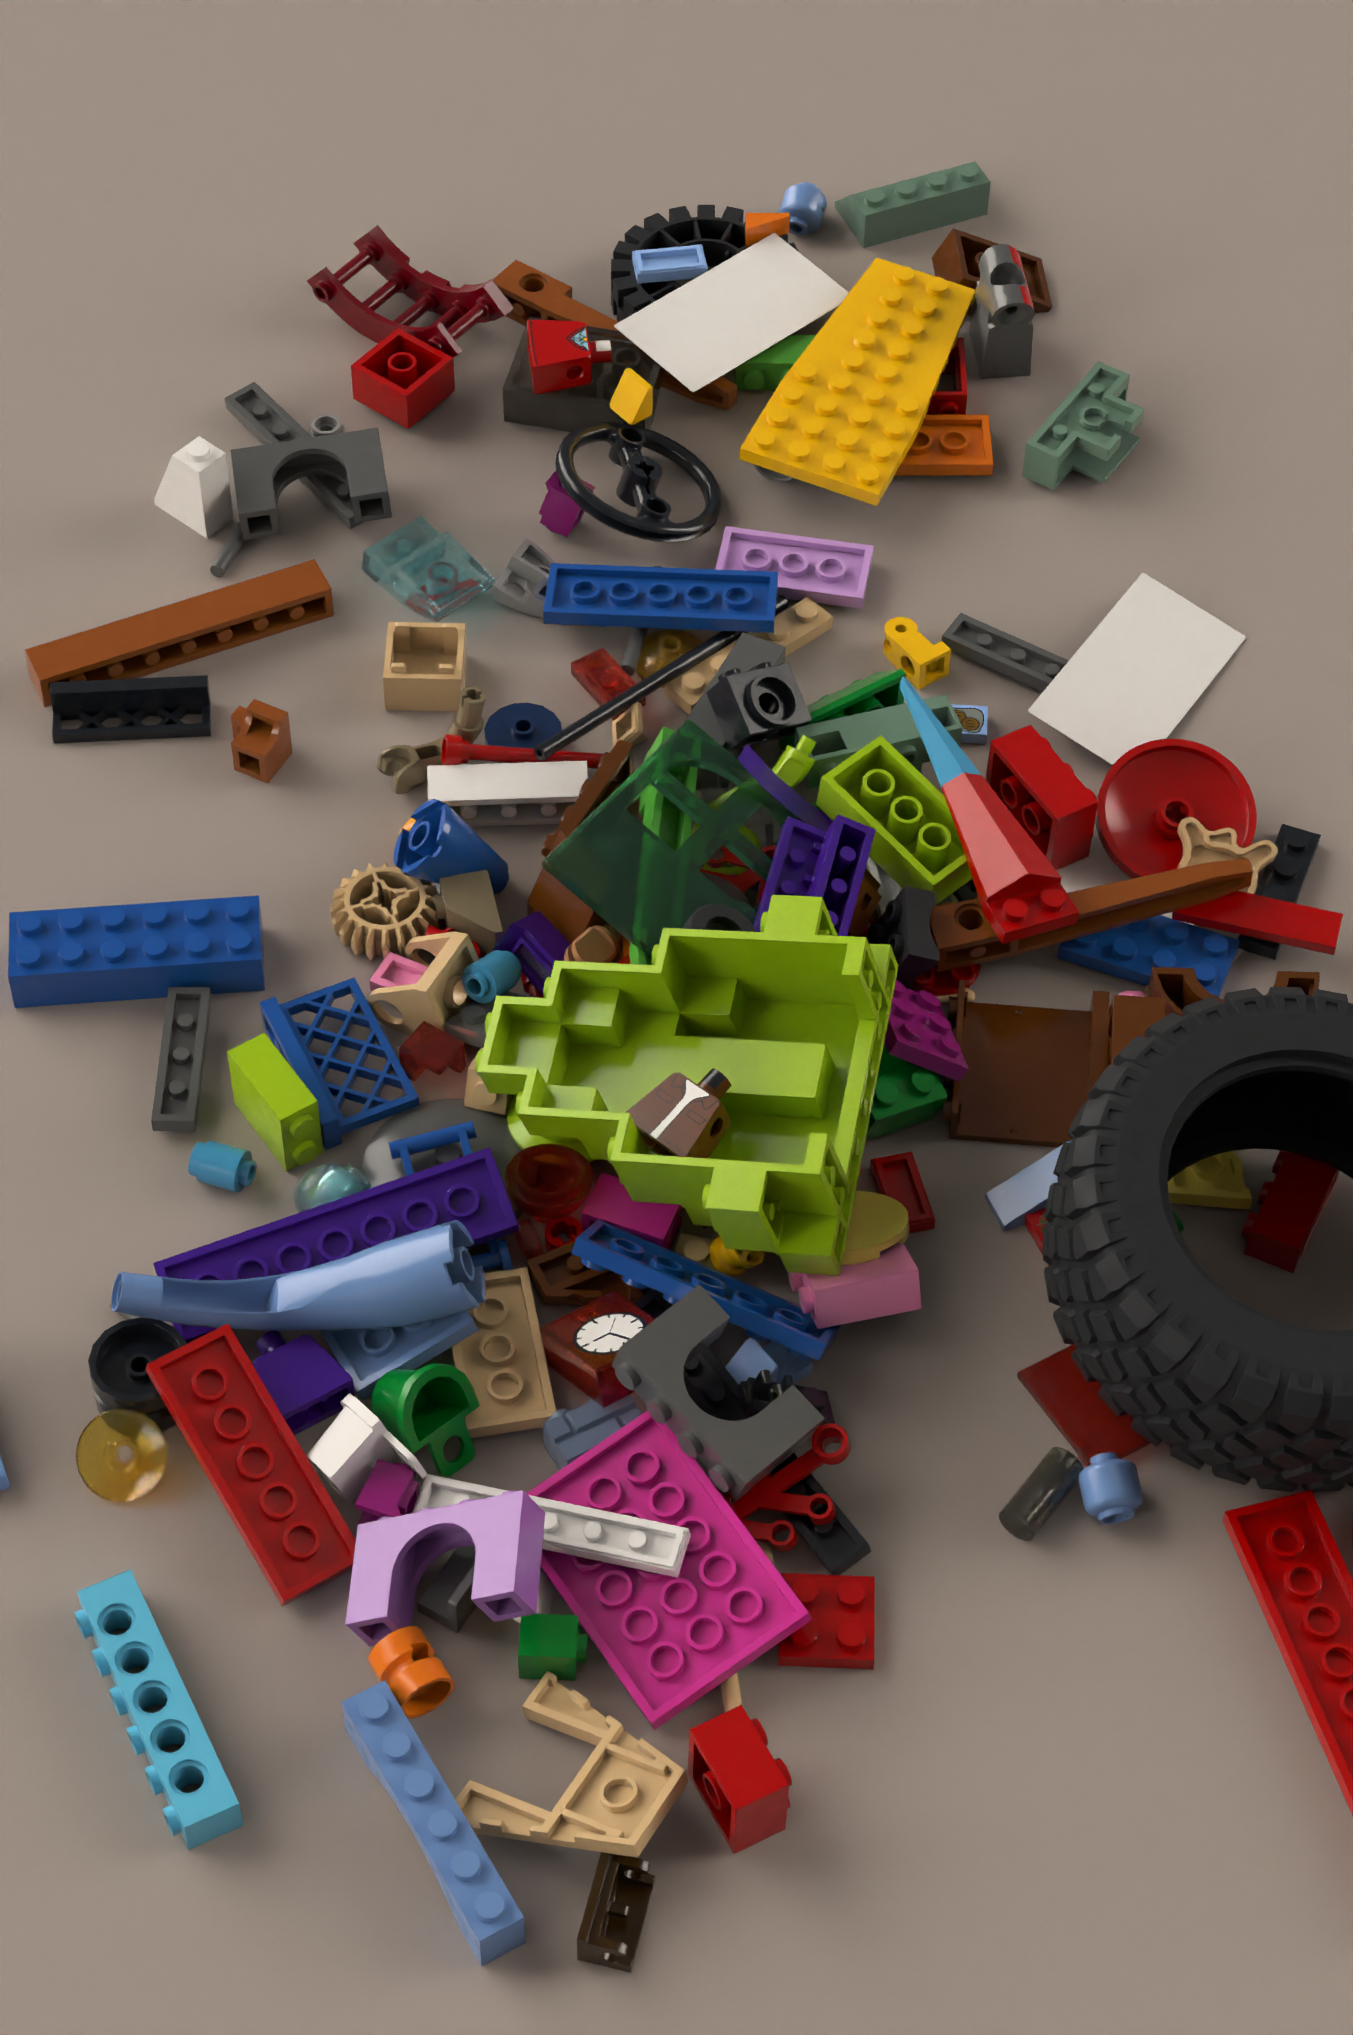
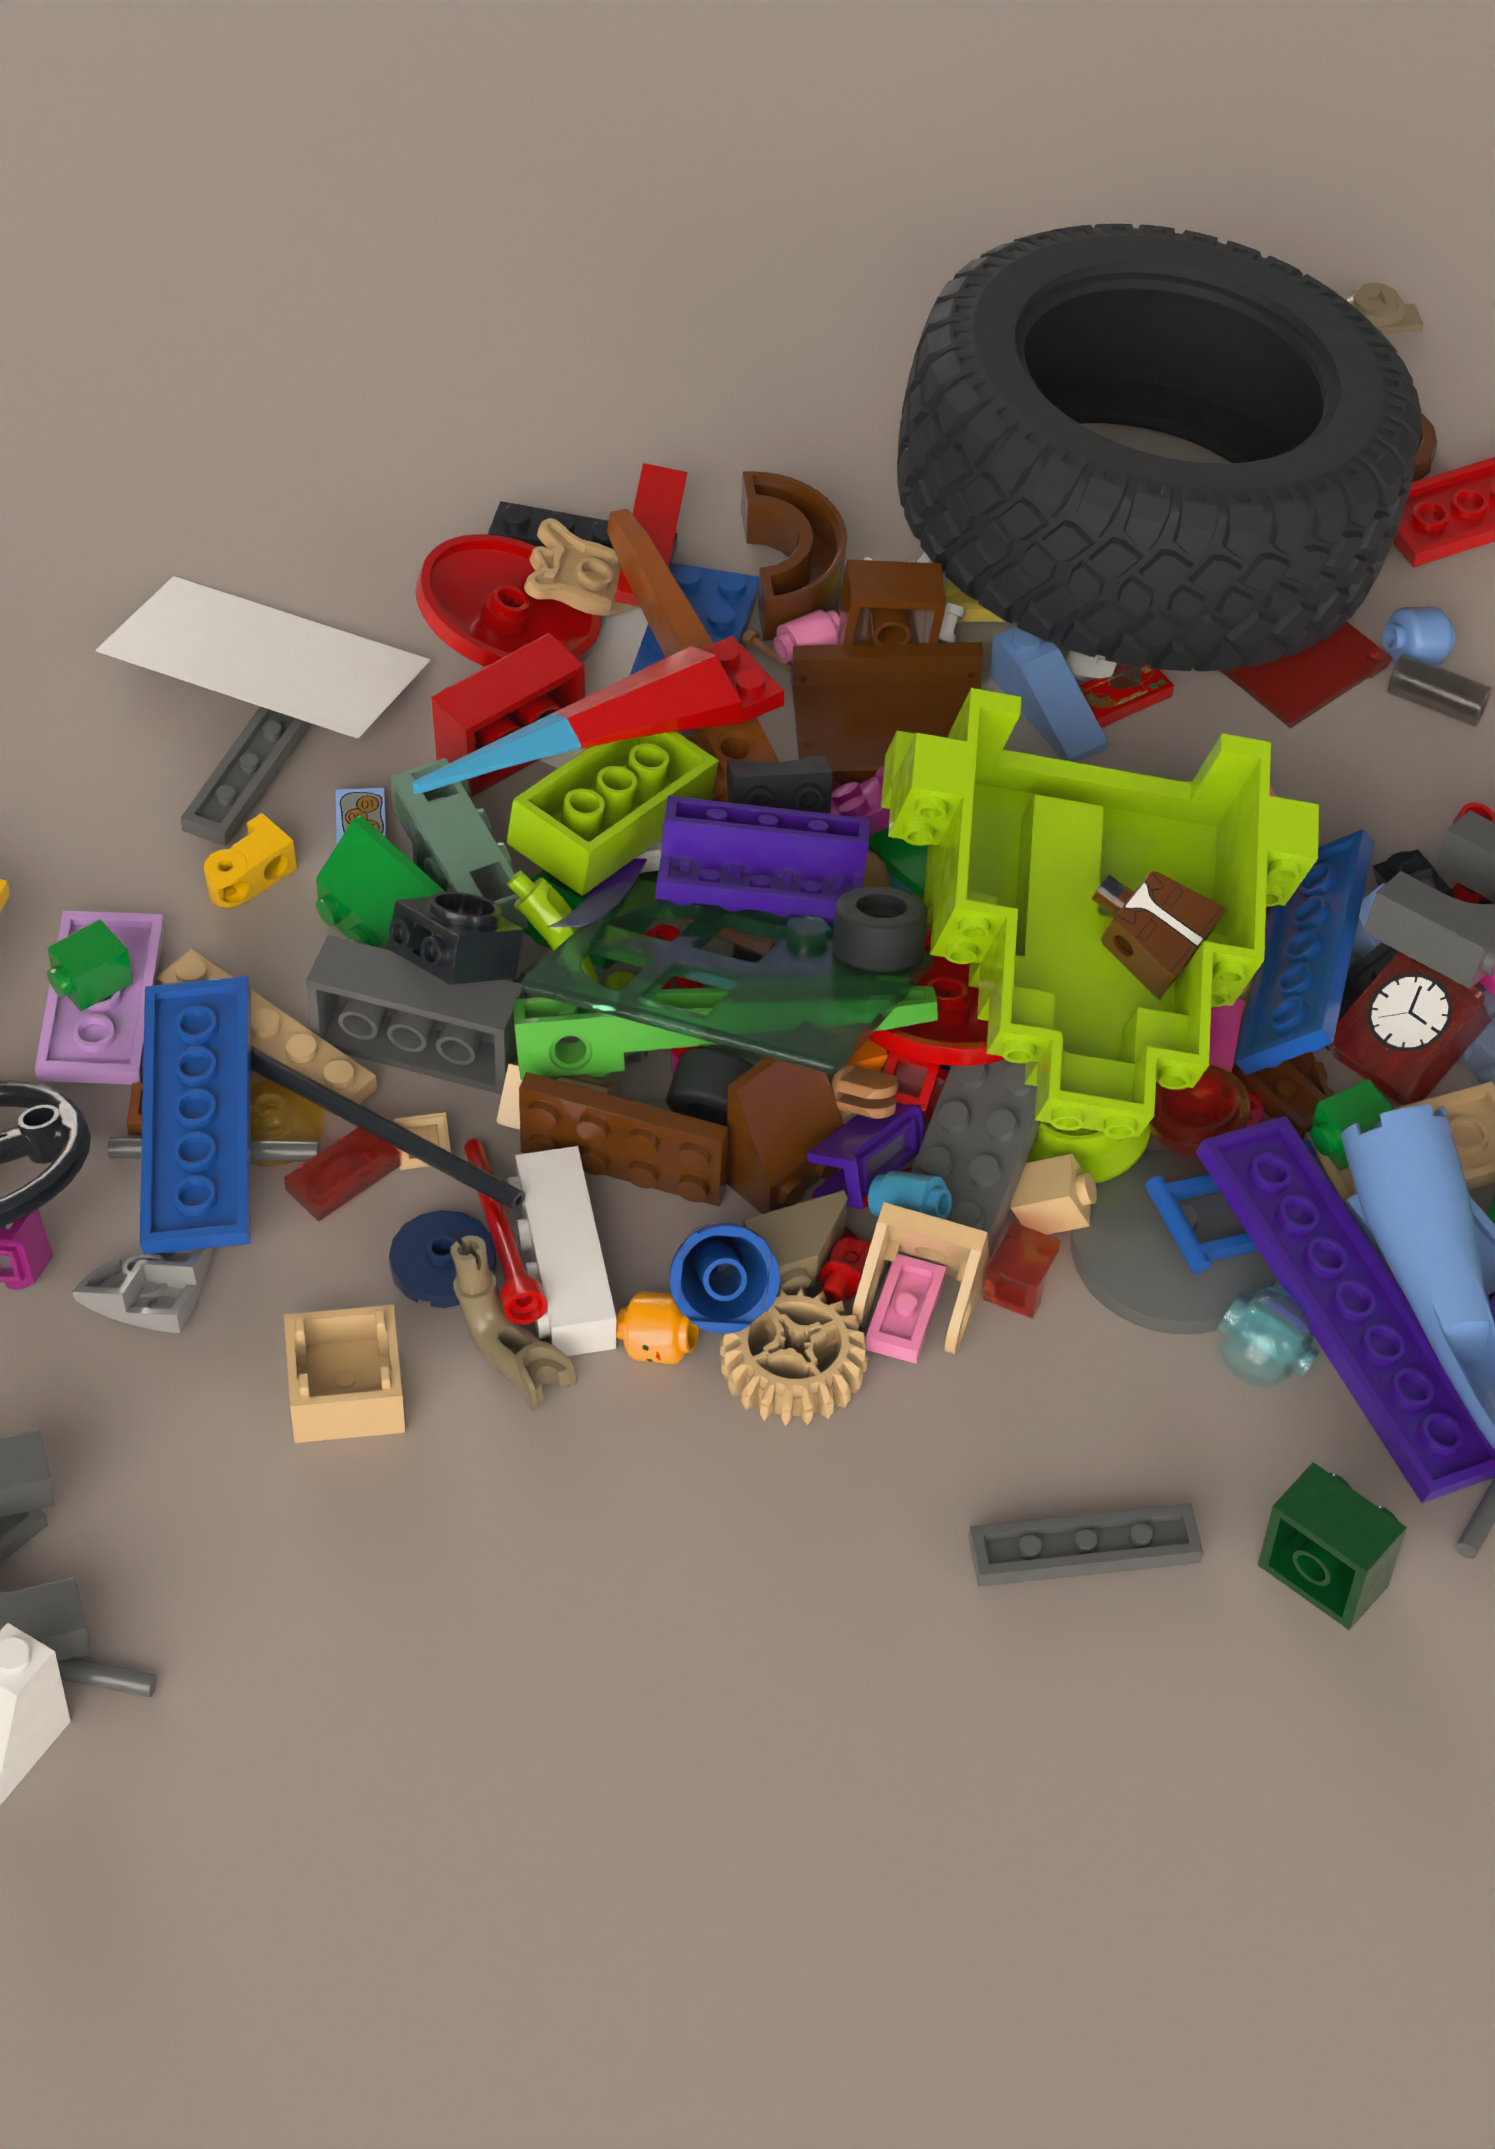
camera: 100 degrees left, 0 degrees up
(121, 1185) = (1331, 1545): none -> dark green brick
(131, 702) = (449, 1733): black fence -> none
(135, 951) = (930, 1628): blue brick -> none
(185, 629) = (307, 1701): dark orange brick -> none
(222, 1165) = (1245, 1464): dark azure brick -> none
(260, 740) = (515, 1549): dark orange brick -> none
(275, 1102) = (1155, 1403): lime brick -> none
(288, 1040) = (1067, 1409): blue fence -> none
(426, 570) = (143, 1406): clear light blue slope -> none
(512, 1283) = (1335, 1114): none -> green brick
(802, 544) = (89, 965): none -> green brick

